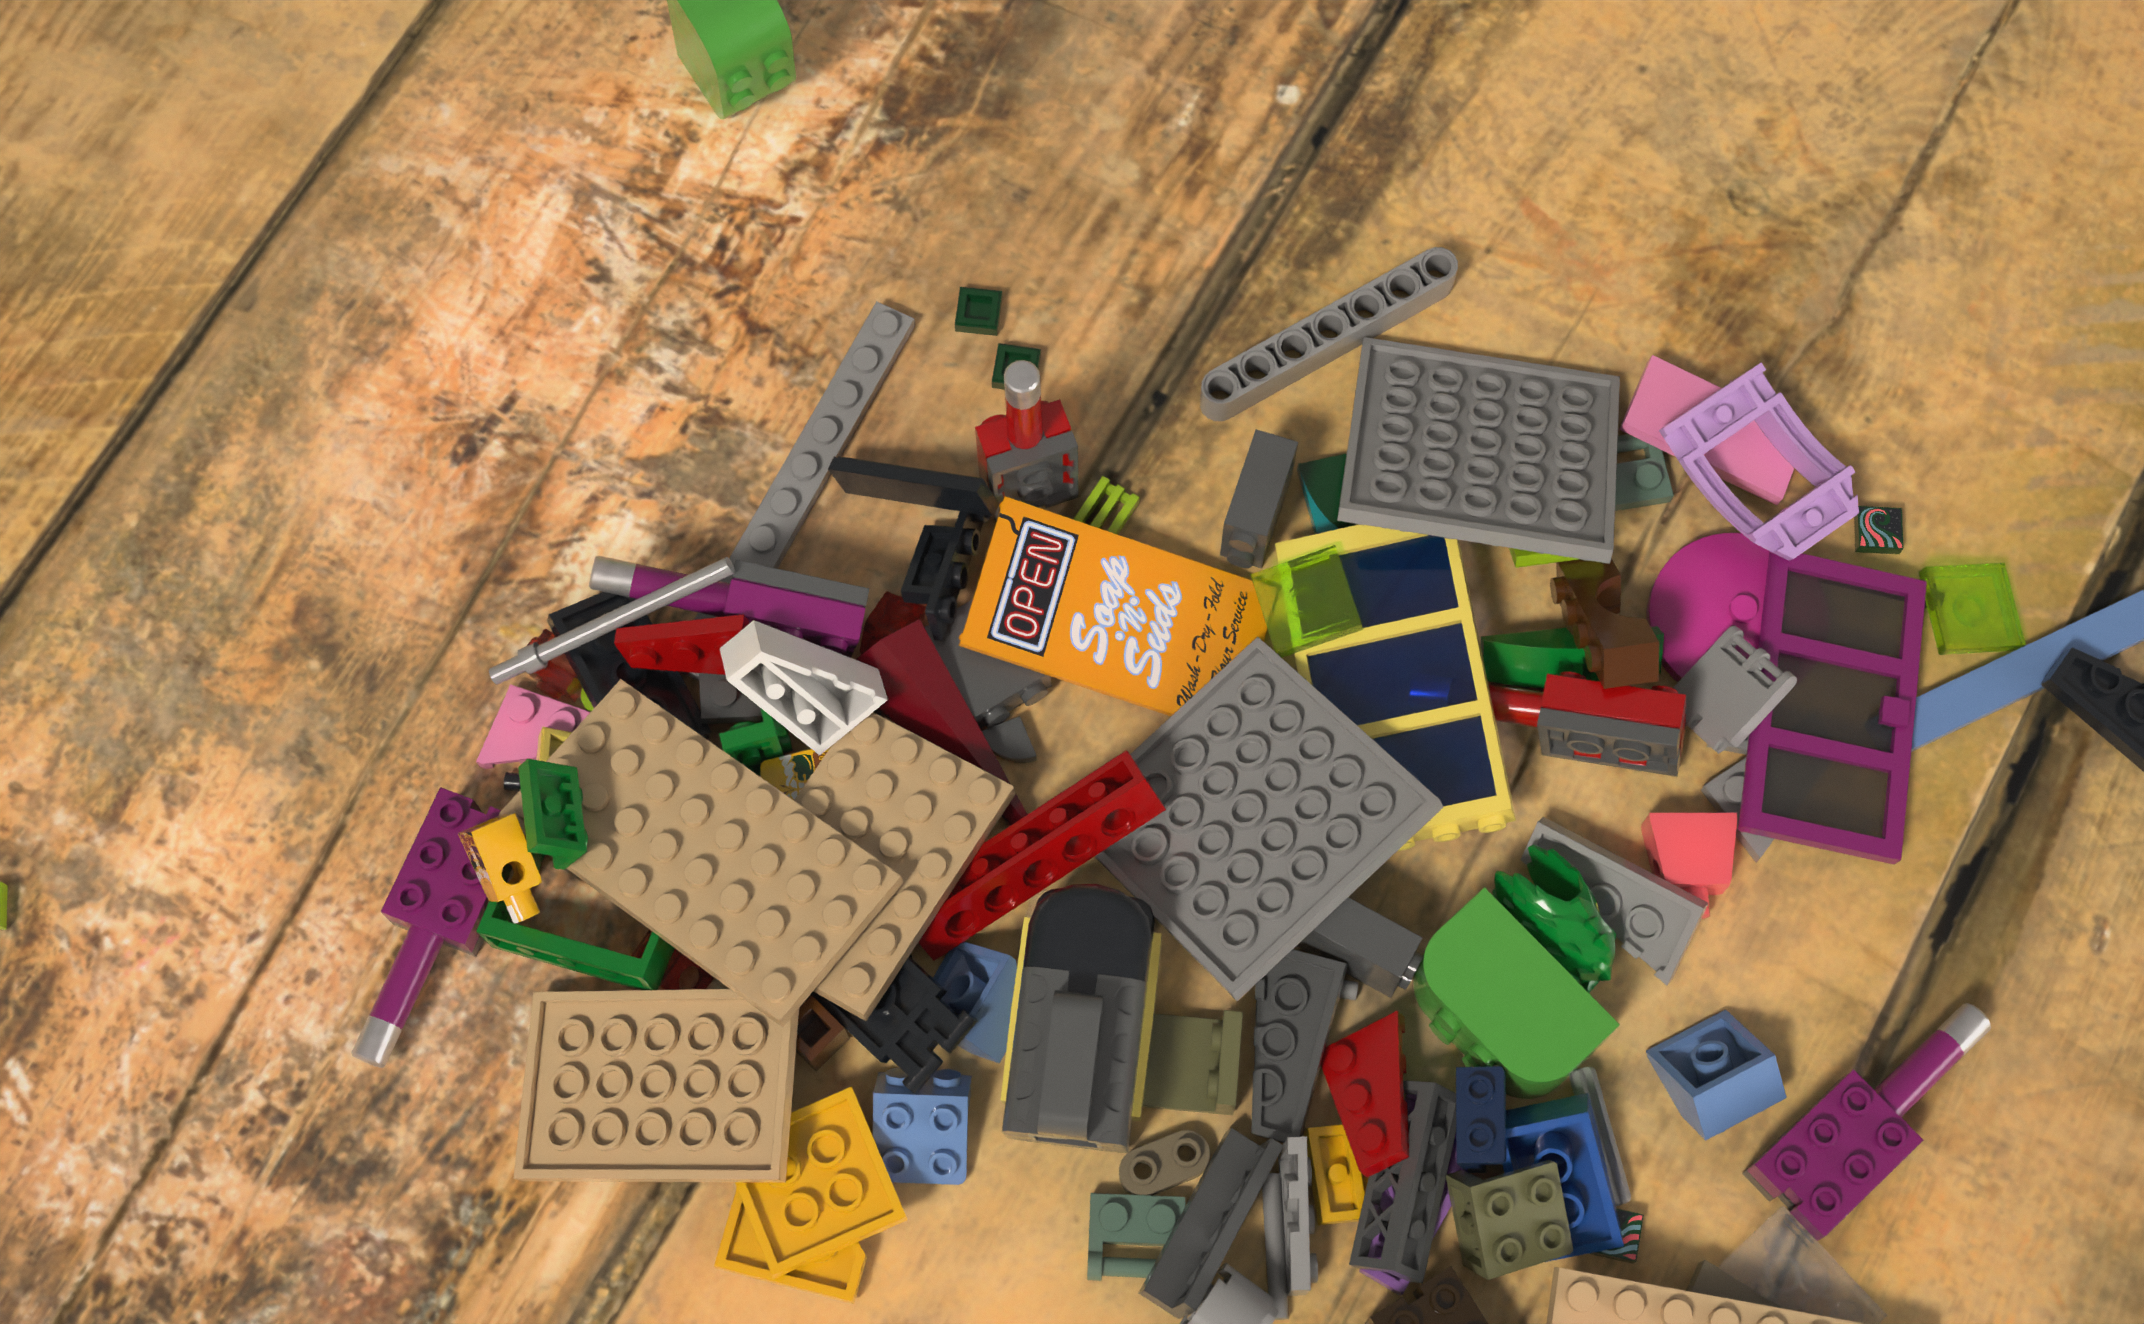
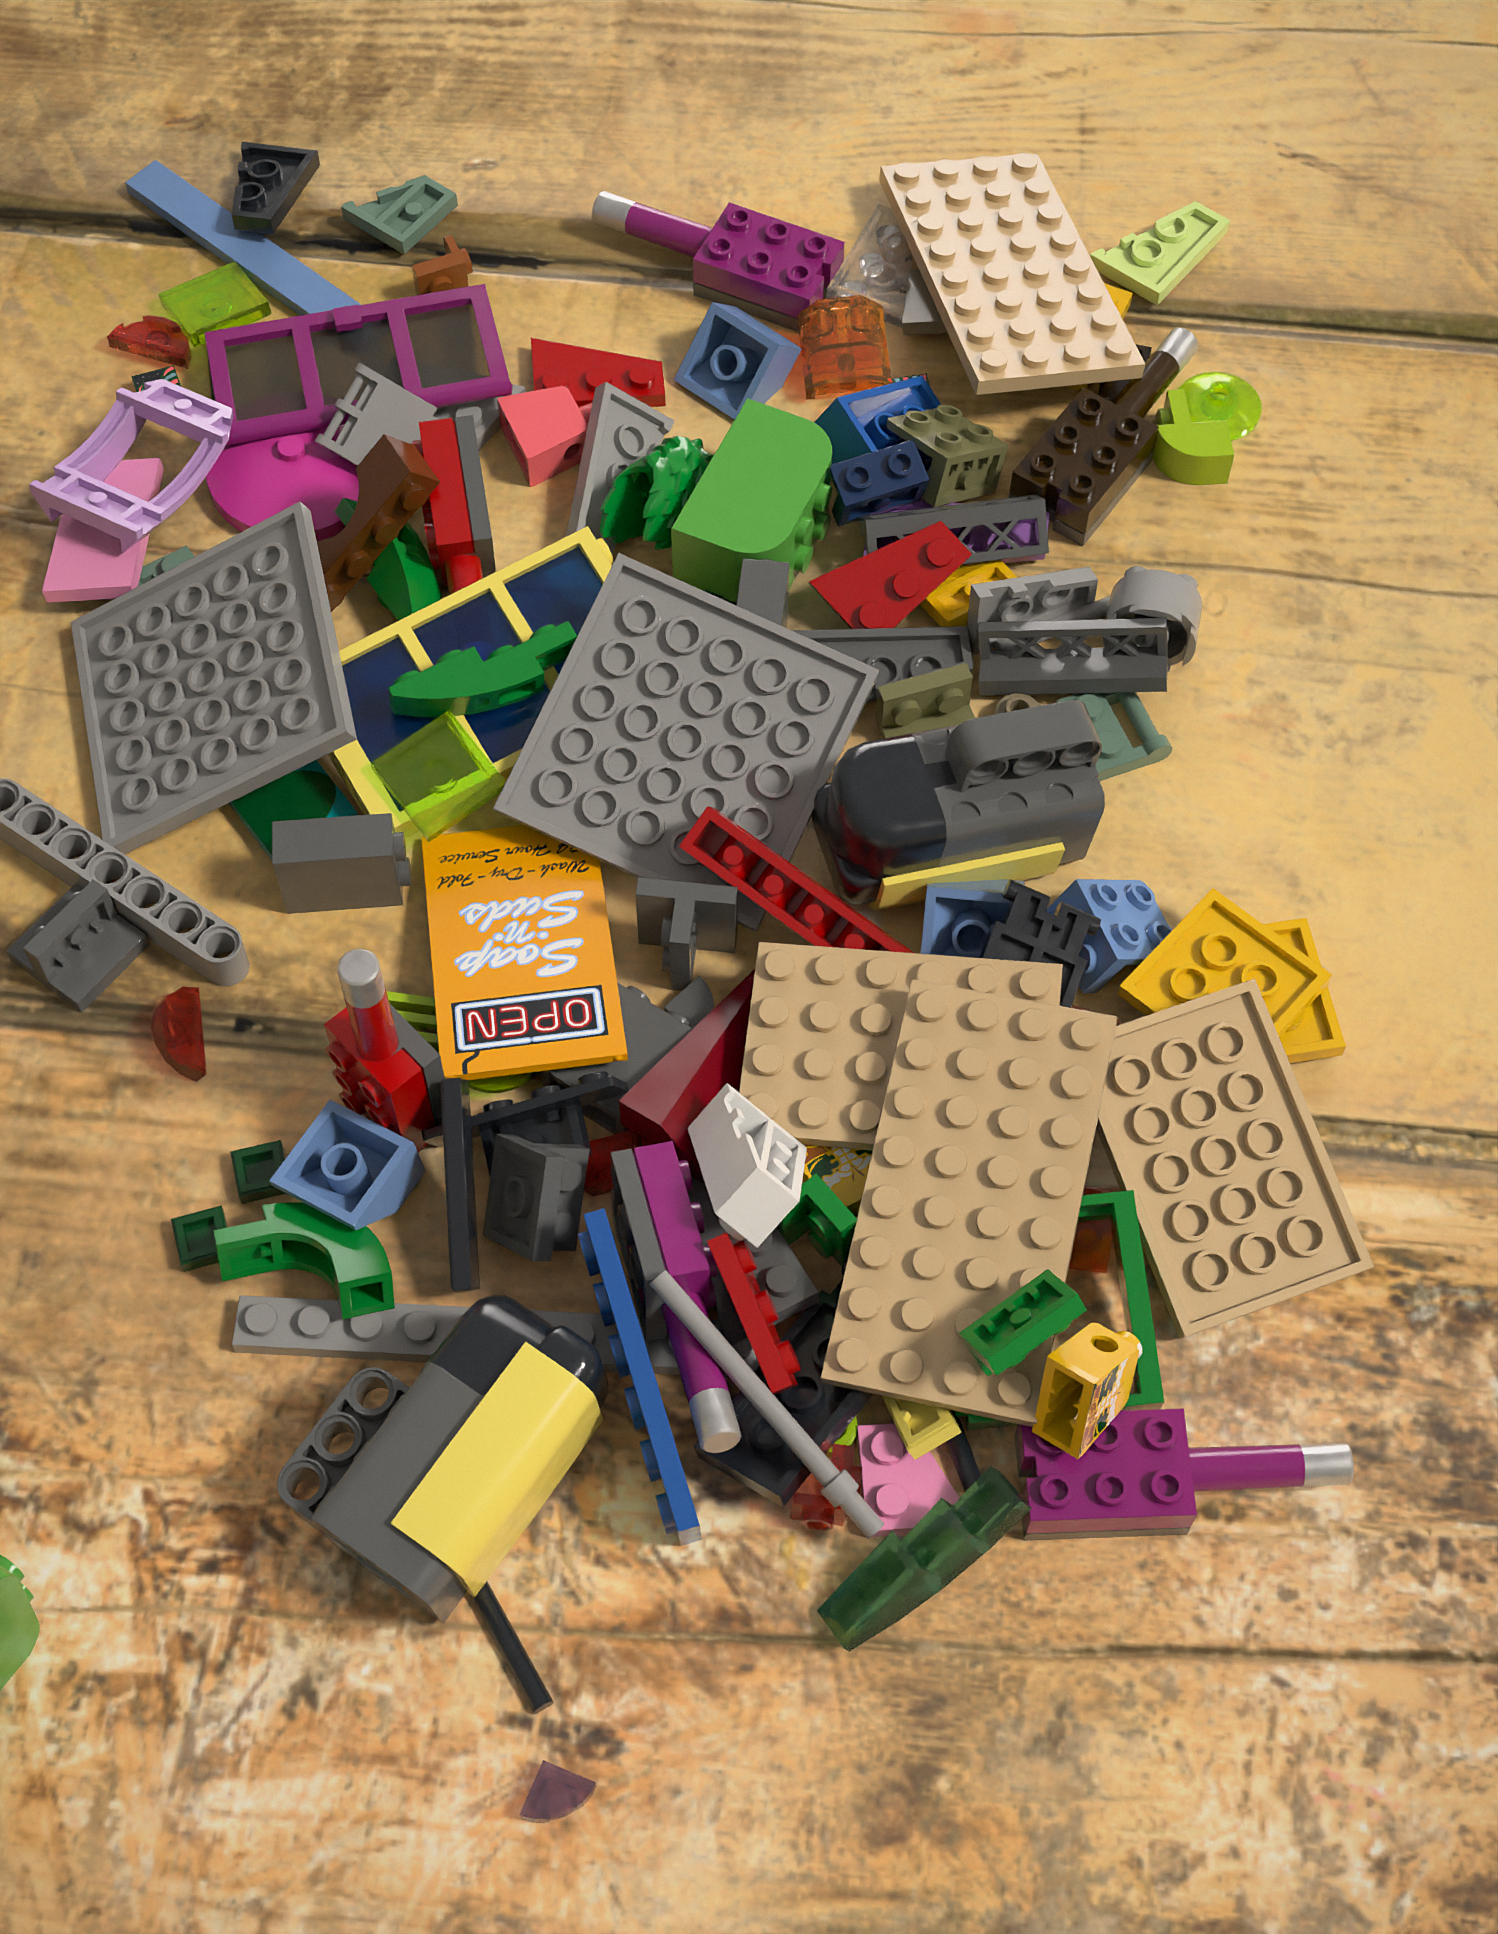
camera: 115 degrees left, 10 degrees down
(442, 405) = (555, 1794): none -> tile
(462, 709) = (915, 1567): none -> clear green slope
(592, 412) = (512, 1649): none -> black bar
(681, 546) = (644, 1396): none -> blue plate
(690, 396) = (458, 1458): none -> piece
(878, 541) = (535, 1196): none -> dark grey bracket
(895, 396) = (311, 1241): none -> green arch
(954, 405) = (350, 1168): none -> medium blue slope
(1073, 749) = (683, 920): none -> dark grey bracket
(1166, 343) = (179, 1032): none -> clear red plate
(1277, 288) = (79, 945): none -> dark grey bracket
(1376, 646) = (471, 686): none -> green slope
(1692, 1188) = (843, 346): none -> clear orange slope
(1752, 928) = (587, 368): none -> red wing
(1930, 826) = (444, 271): none -> dark orange bracket
(1945, 542) = (153, 338): none -> clear red plate
(2042, 826) = (403, 213): none -> sand green wing

